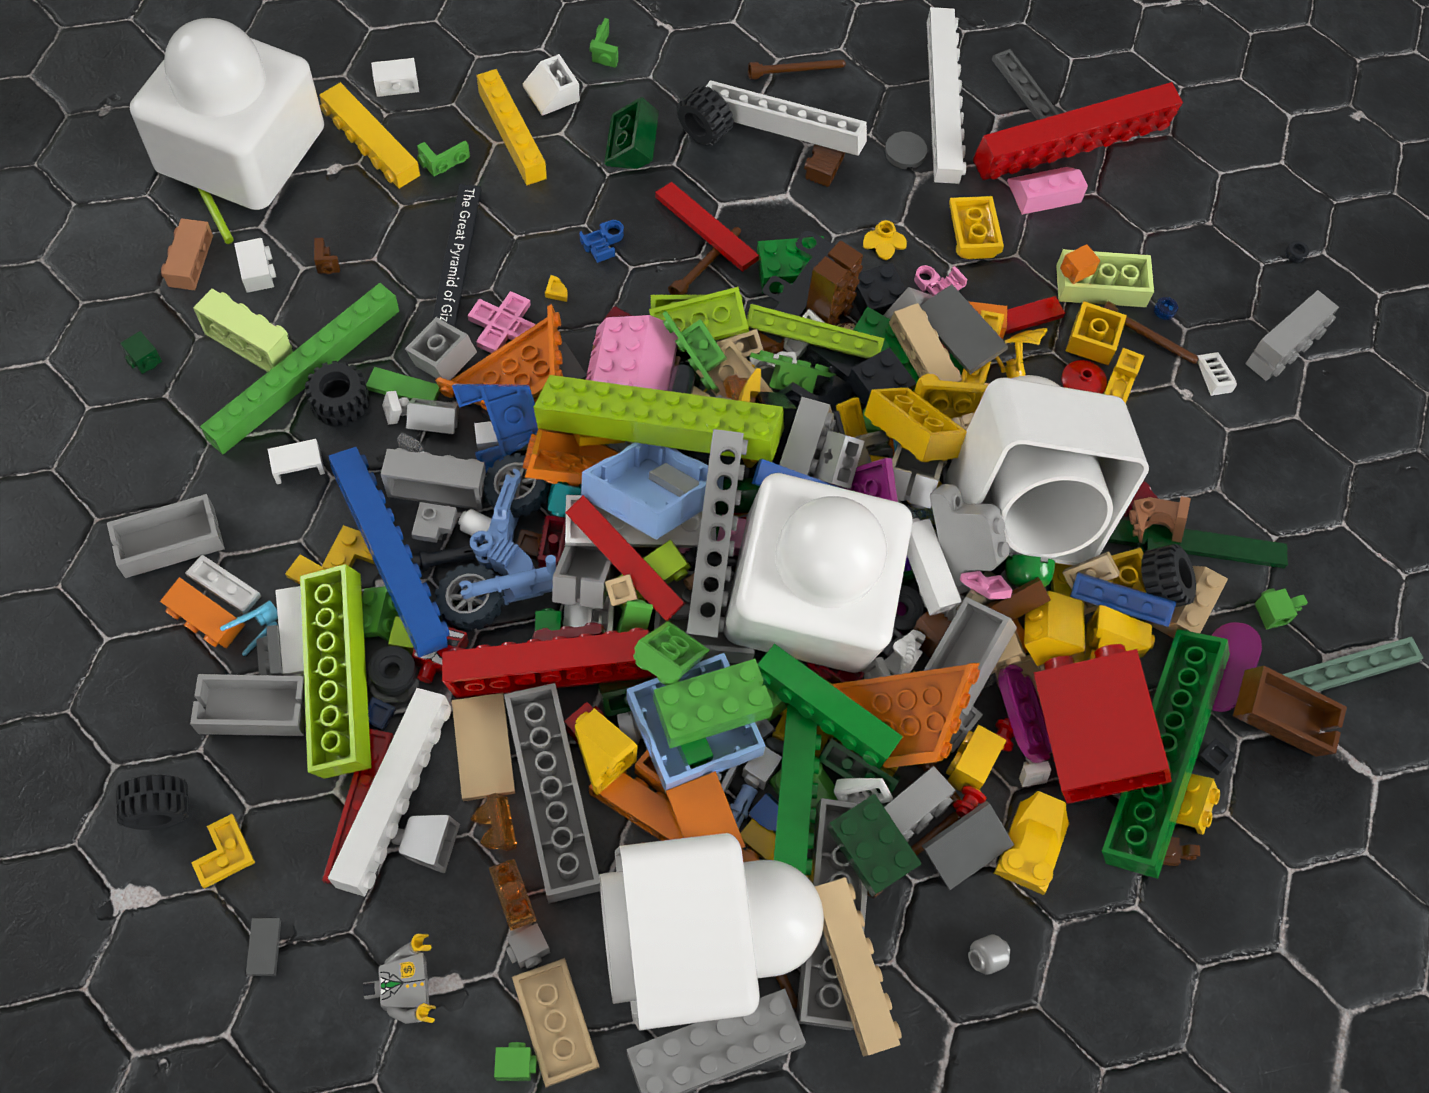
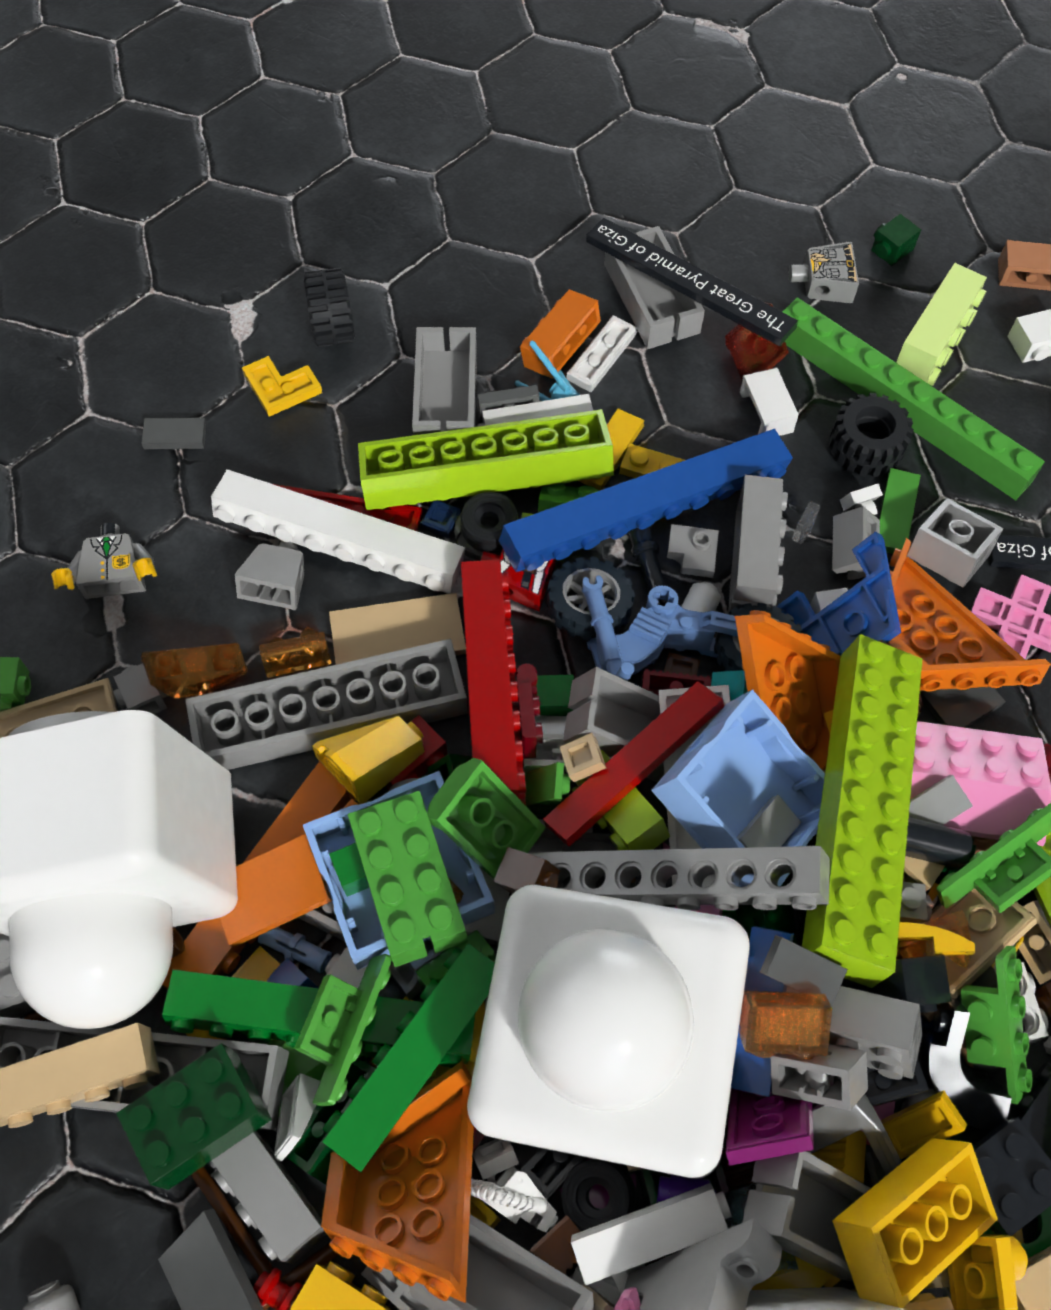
camera: 95 degrees right, 0 degrees up
(168, 405) = (828, 273): none -> light grey torso
(177, 501) = (692, 281): none -> black tile
(240, 463) = (752, 351): none -> clear red tile
(655, 376) = (940, 802): none -> light grey tile
(709, 627) = (524, 869): none -> brick
(783, 455) = (802, 969): none -> dark grey tile
(810, 751) = (337, 1024): none -> bright green bracket
(816, 462) = (785, 1024): none -> clear orange brick

